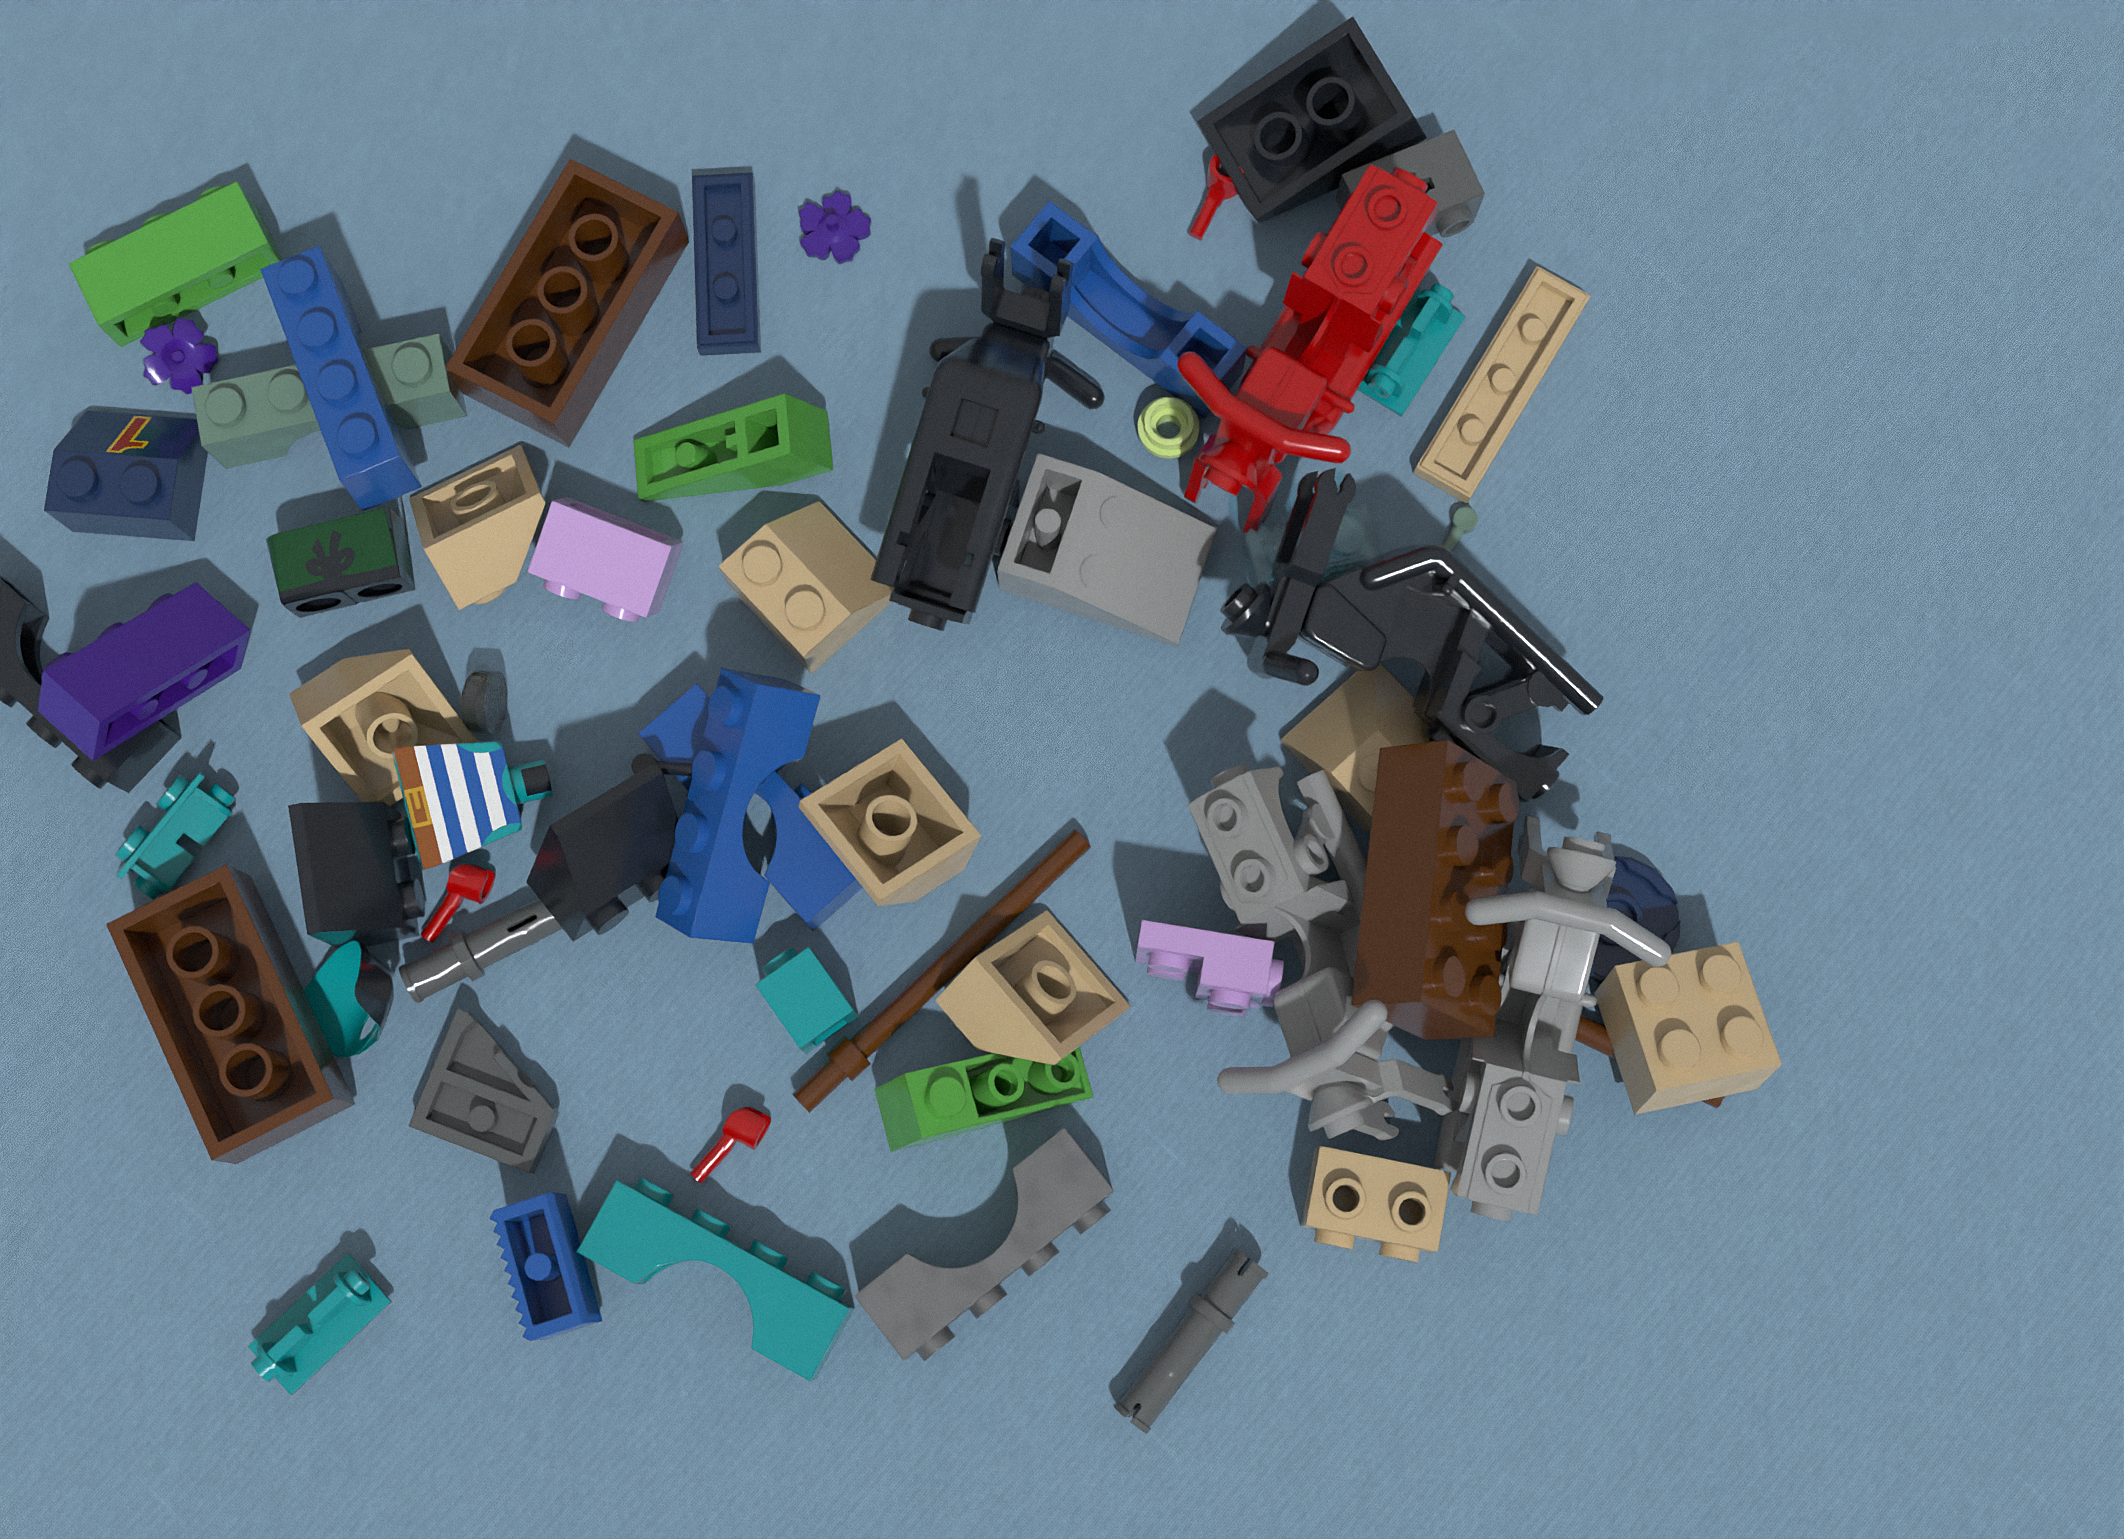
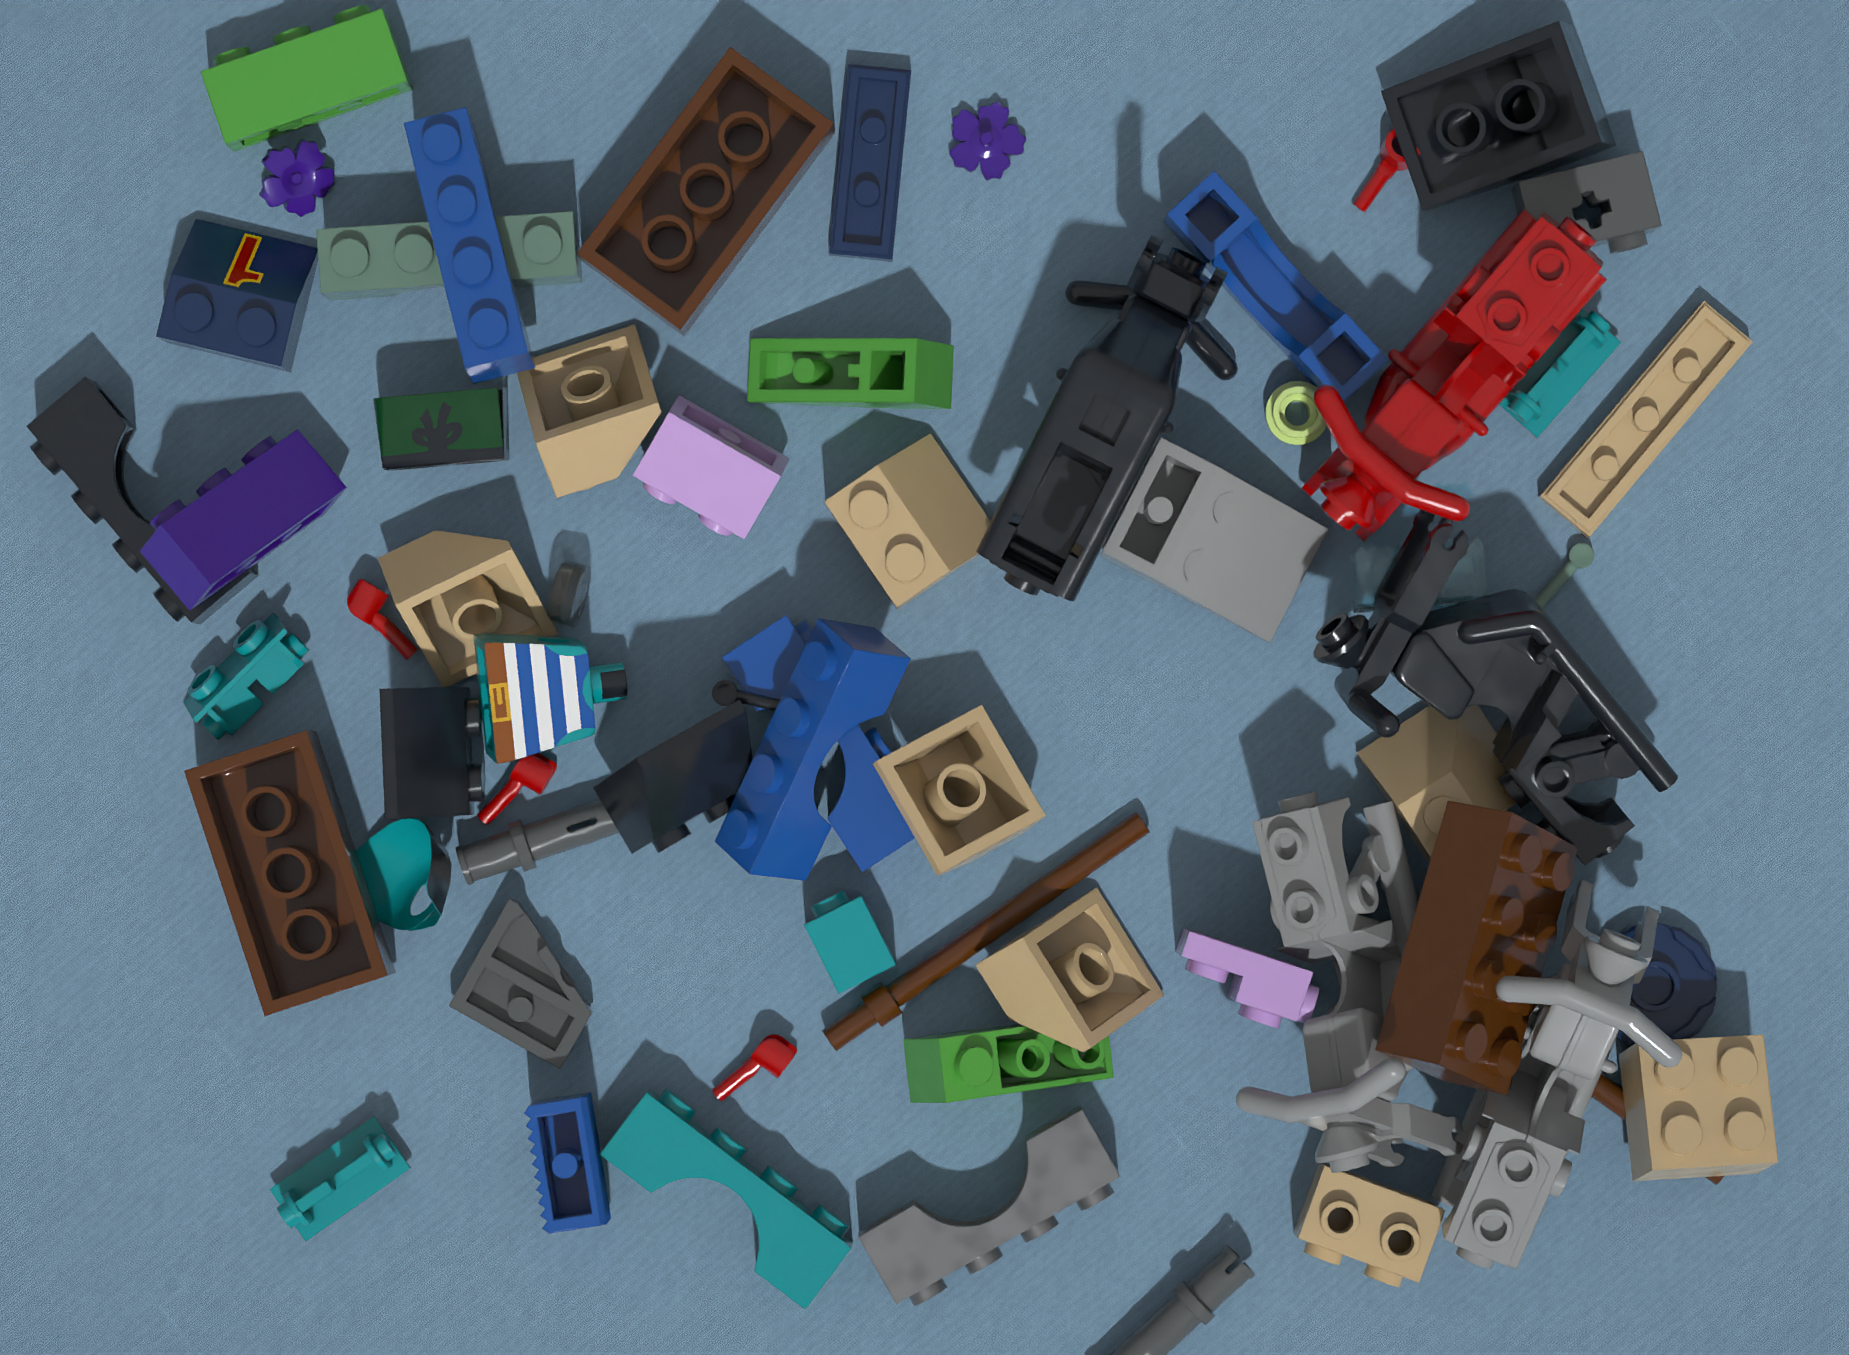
camera: 10 degrees right, 10 degrees up
(286, 743) = (365, 603): none -> red hand

